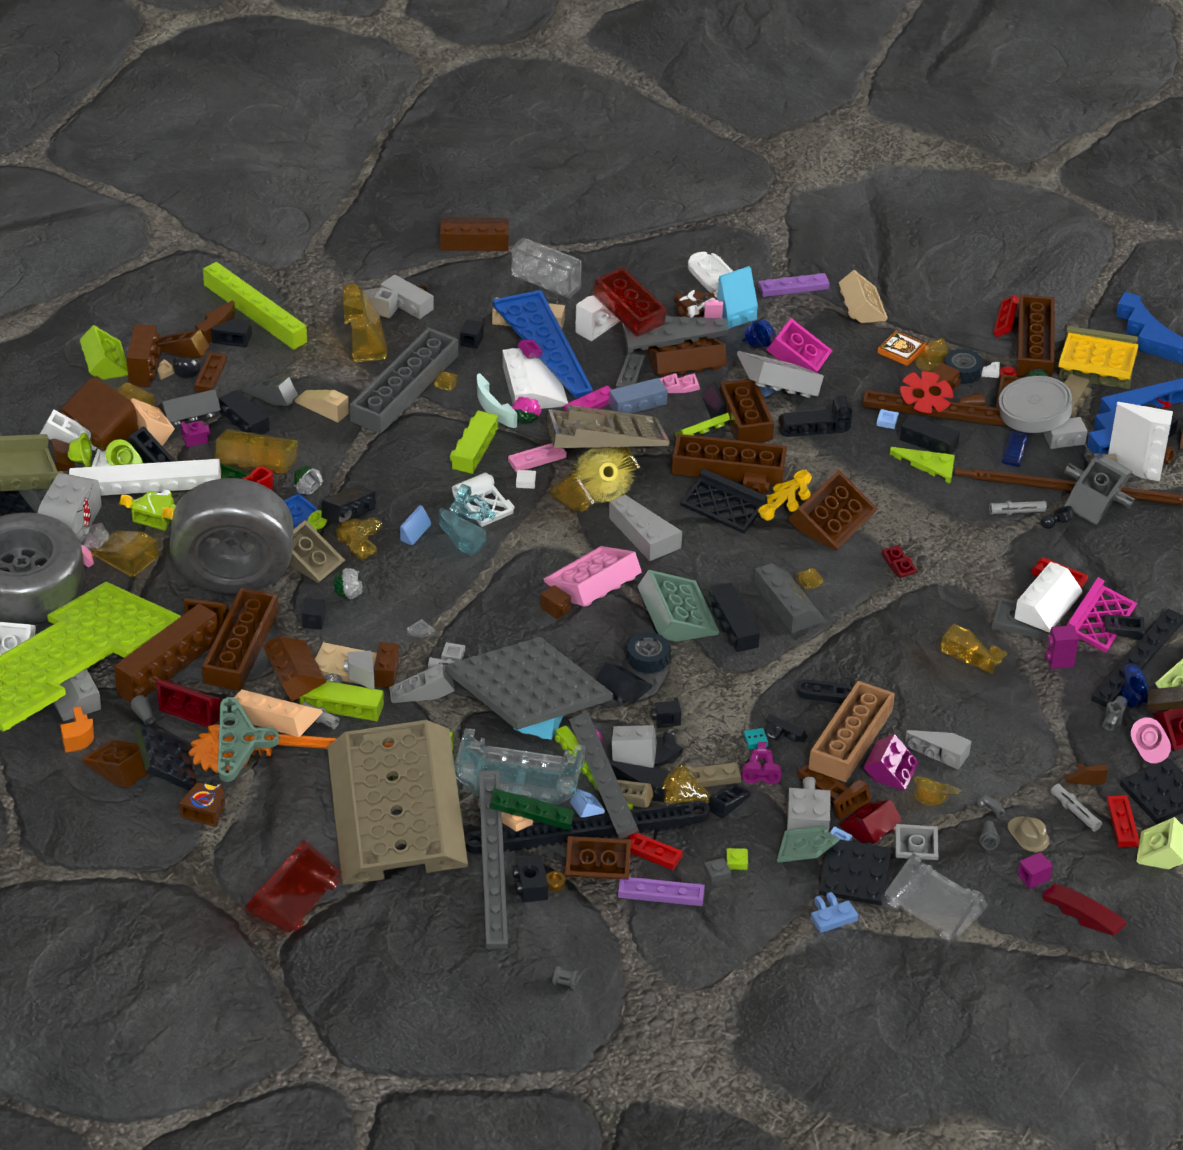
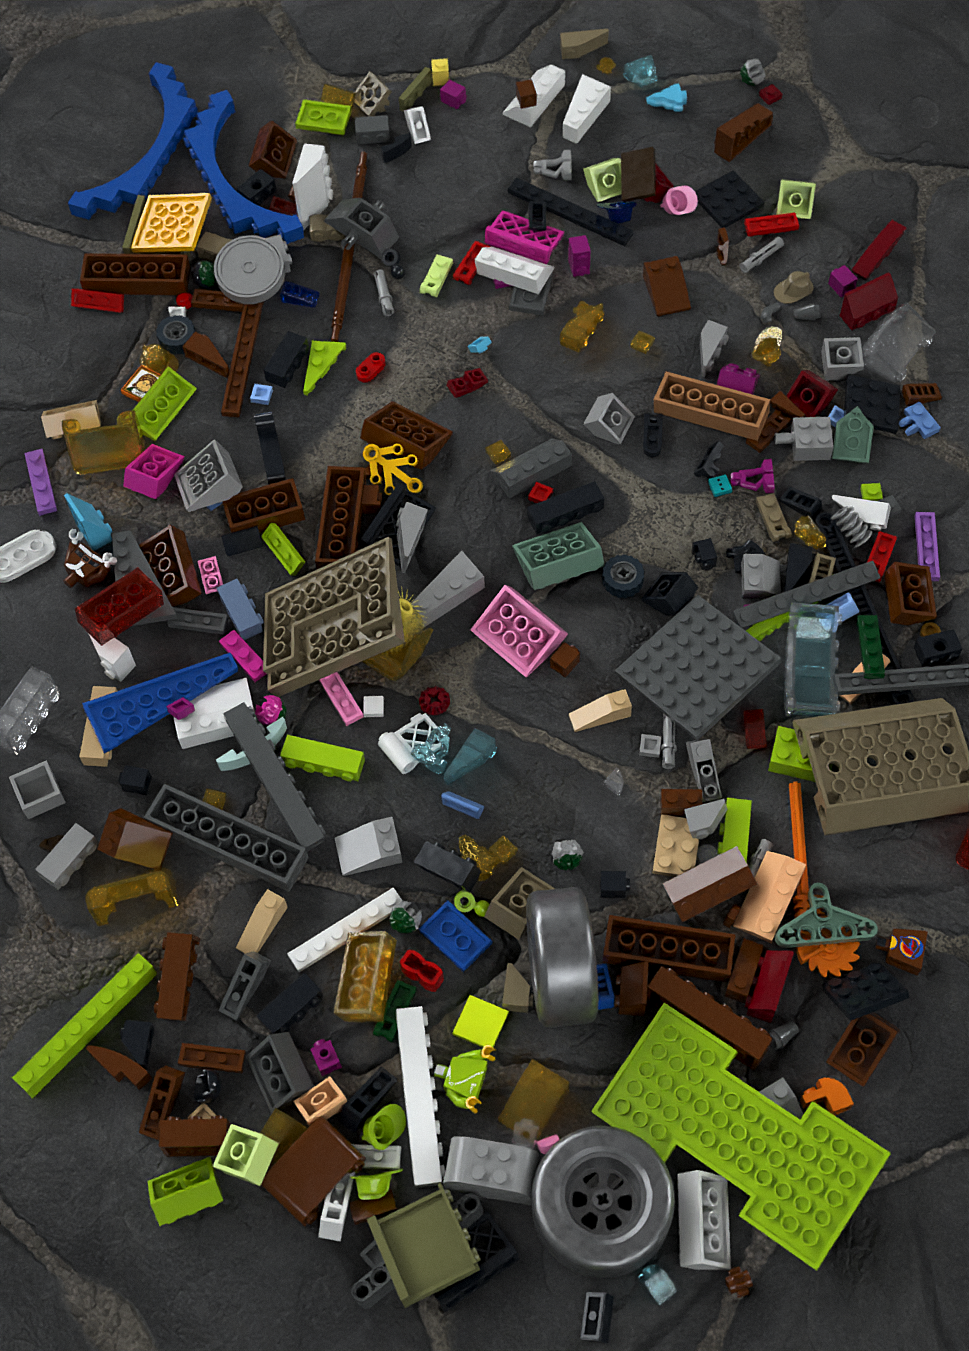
camera: 90 degrees left, 20 degrees up
(114, 366) = (245, 1154): none -> yellowish green brick
(206, 683) = (744, 971): none -> reddish brown slope
(216, 595) = (605, 998): none -> blue slope
(266, 687) = (731, 916): none -> reddish brown tile
(286, 351) = (176, 976): none -> reddish brown wedge
(308, 451) = (337, 934): none -> white plate
(382, 470) = (368, 847): none -> light grey slope
(383, 300) = (80, 881): light grey slope -> none
(412, 324) = (134, 839): none -> reddish brown slope
(454, 403) = (274, 777): none -> dark grey brick
(457, 725) = (755, 729): none -> clear red slope
(469, 277) = (37, 789): none -> light grey piece
(496, 626) = (602, 711): none -> tan slope
(526, 522) = (436, 707): none -> dark red gear
(688, 823) = (853, 525): none -> light grey piece
(700, 495) = (410, 527): none -> light grey slope
(707, 843) = (873, 513): none -> white slope
(713, 309) = (106, 541): bright pink slope -> none
(754, 602) = (540, 493): none -> red plate
(759, 334) = (134, 506): clear blue piece -> none
(824, 315) = (104, 446): none -> clear yellow windscreen
(843, 659) = (609, 418): none -> light grey slope
(869, 906) = (910, 399): none -> reddish brown slope
(878, 354) = (162, 403): none -> lime slope
(921, 496) = (373, 365): none -> red plate
(925, 404) = (219, 360): red piece -> none
(945, 571) = (479, 345): none -> medium azure plate
(948, 695) = (642, 342): none -> clear yellow plate
(974, 399) = (231, 325): reddish brown cone -> none
(998, 882) = (869, 302): none -> dark red slope
(1027, 721) = (666, 286): none -> reddish brown slope
(1041, 548) = (436, 275): none -> yellowish green plate
(1114, 713) = (647, 226): dark grey axle -> none

